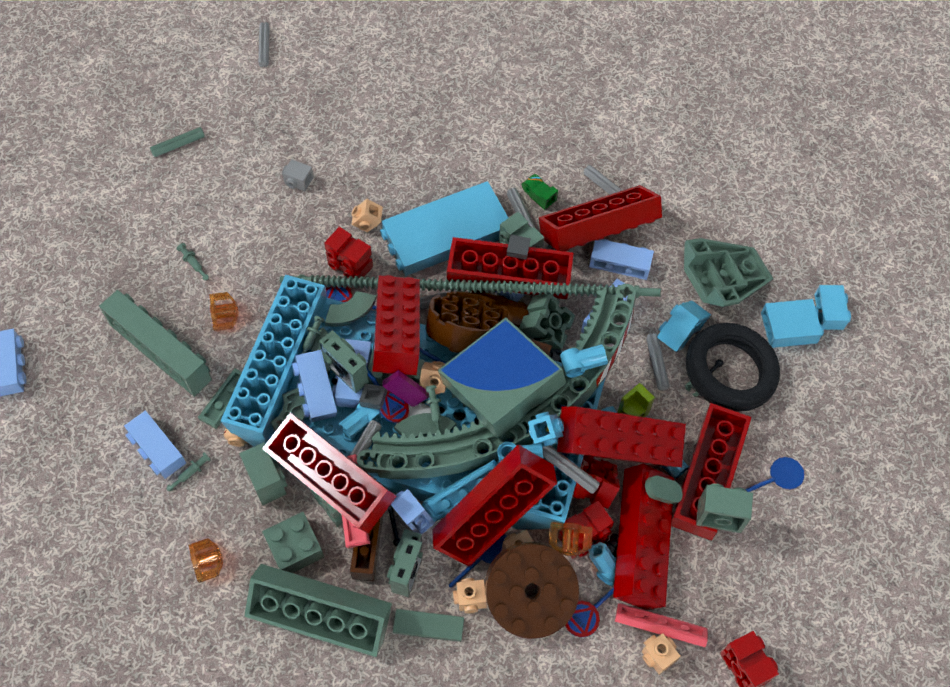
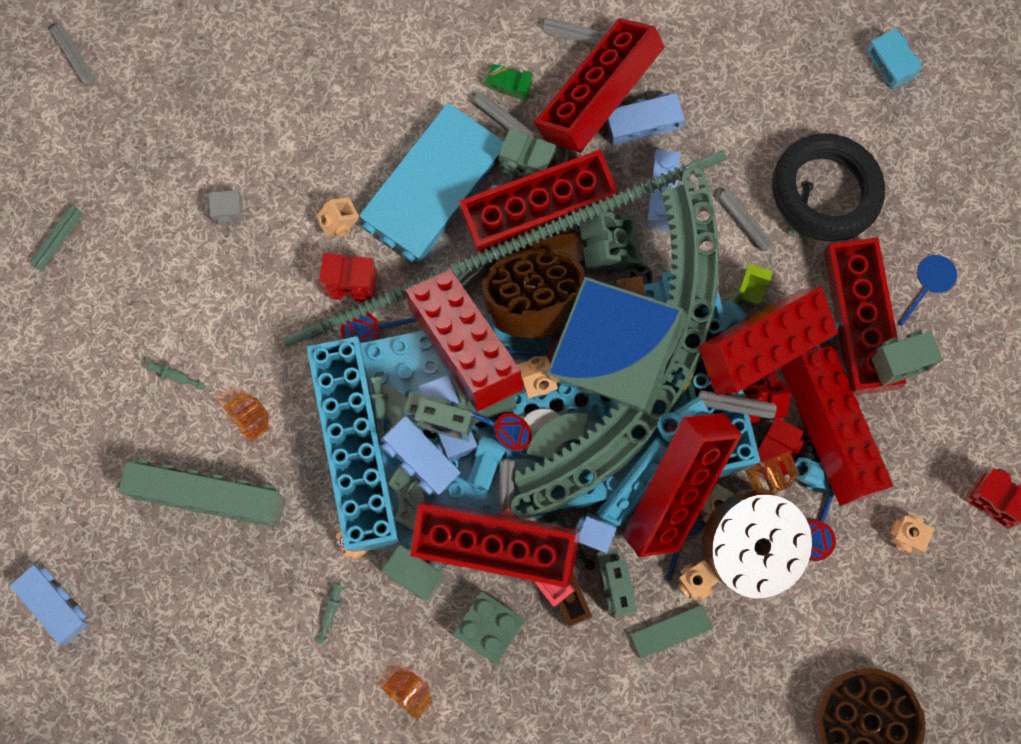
camera: 25 degrees left, 15 degrees up
(154, 445) = (275, 605): light blue brick -> none
(216, 407) = (314, 511): sand green tile -> none
(317, 610) = (559, 681): sand green brick -> none
(351, 310) = (400, 347): sand green tile -> none
(373, 396) = (489, 435): dark grey tile -> none
(405, 388) = (517, 408): magenta tile -> none
(434, 406) = (559, 412): sand green piece -> none
(518, 246) = (539, 175): dark grey tile -> none
(539, 432) = (697, 388): medium azure brick -> none
(577, 361) = (688, 287): medium azure piece -> none
(661, 624) = (896, 505): coral tile -> none
(663, 489) = (834, 369): sand green tile -> none
(684, 322) = (754, 161): medium azure brick -> none
(724, 271) = (763, 77): sand green wedge -> none
(792, 323) = (862, 100): medium azure brick -> none

